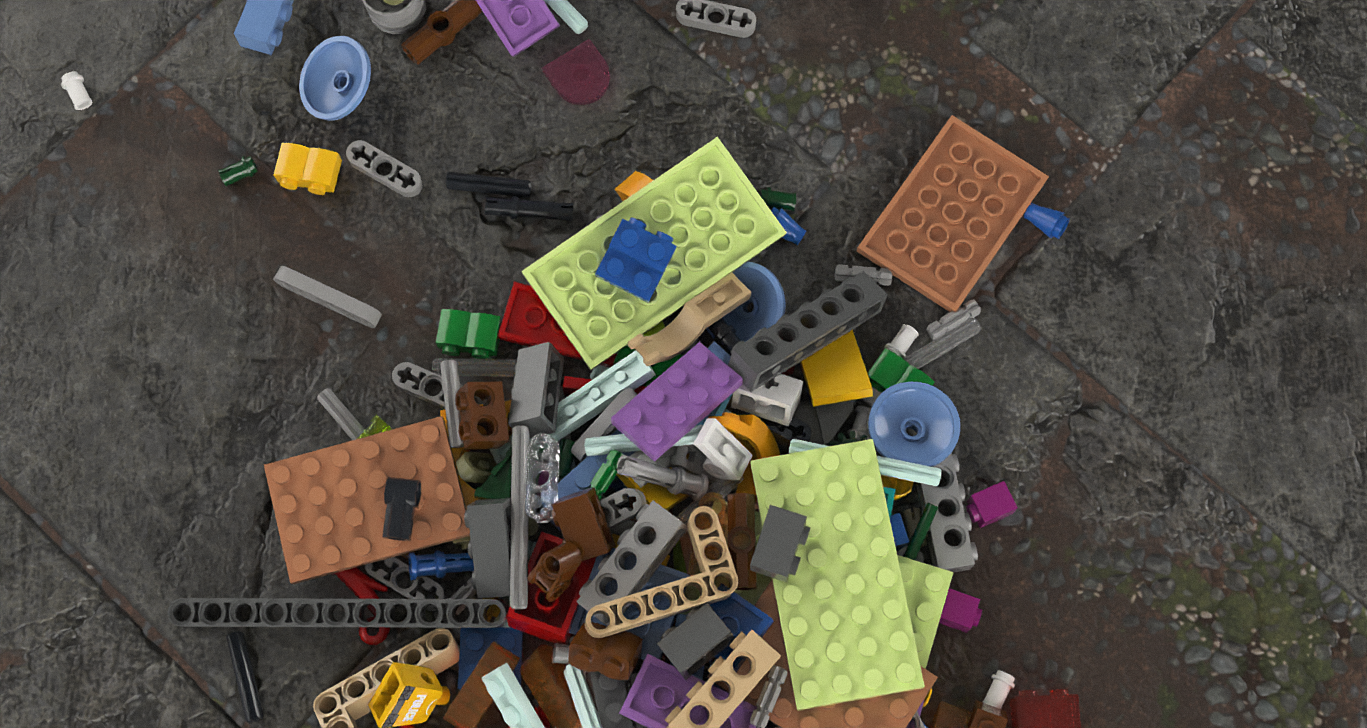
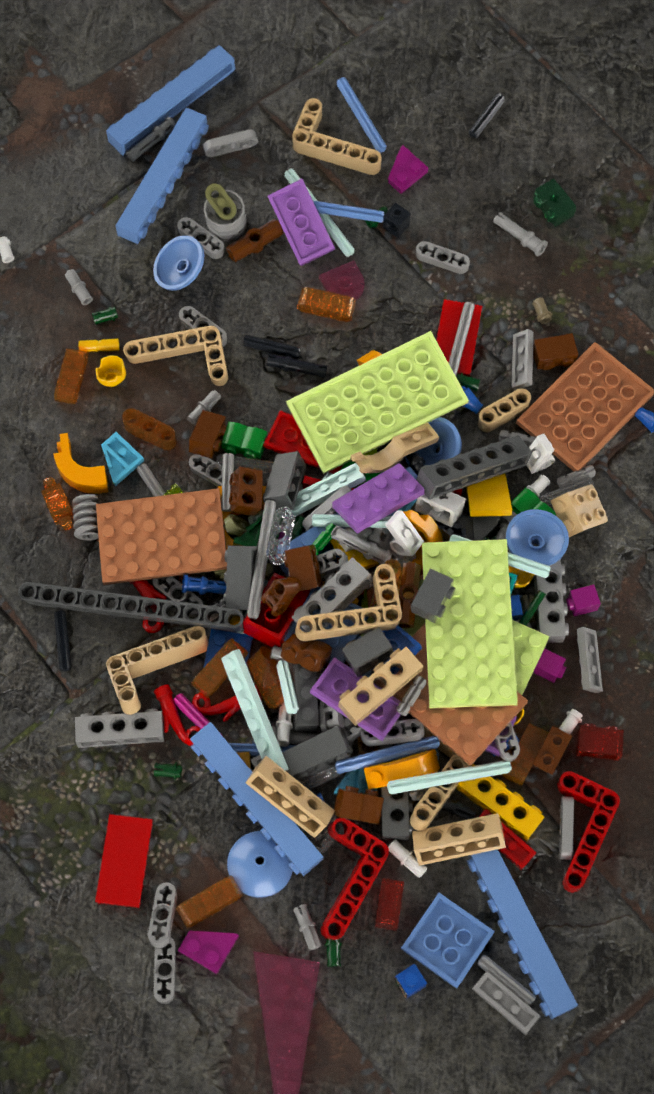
camera: 10 degrees right, 5 degrees down
(193, 133) = (78, 287): none -> light grey axle
(201, 270) = (71, 376): none -> clear orange beam
(208, 468) = (57, 503): none -> clear orange piece
(231, 218) = (101, 345): none -> yellow piece
(245, 425) = (80, 478): none -> light orange arch
(251, 484) = (85, 517): none -> light grey piece
(258, 255) = (111, 371): none -> yellow hair
(290, 385) = (120, 457): none -> medium azure wing
(307, 168) = (151, 319): yellow brick -> none
(317, 326) = (143, 422): none -> clear orange beam
(327, 297) = (153, 404): light grey beam -> none
(356, 23) = (199, 230): none -> light grey beam
(359, 205) = (182, 348): none -> tan beam
(401, 500) = (184, 536): black piece -> none
(403, 290) = (208, 402): none -> light grey axle
(407, 696) = (169, 665): yellow torso -> none
(413, 332) = (207, 434): none -> reddish brown brick
(558, 110) = (326, 304): none -> clear orange beam
(636, 259) = (364, 403): blue plate -> none
(755, 130) = (447, 332): none -> red tile
(760, 134) = (461, 336): none -> light grey axle
(842, 223) = (508, 402): none -> tan beam
(852, 155) = (522, 359): none -> light grey plate
(872, 83) = (544, 316): none -> dark tan pin
(897, 137) = (555, 351): none -> reddish brown brick
(901, 295) = (541, 454): none -> white plate
(967, 370) = (579, 509): none -> tan bracket
(1012, 593) = (589, 660): none -> light grey plate

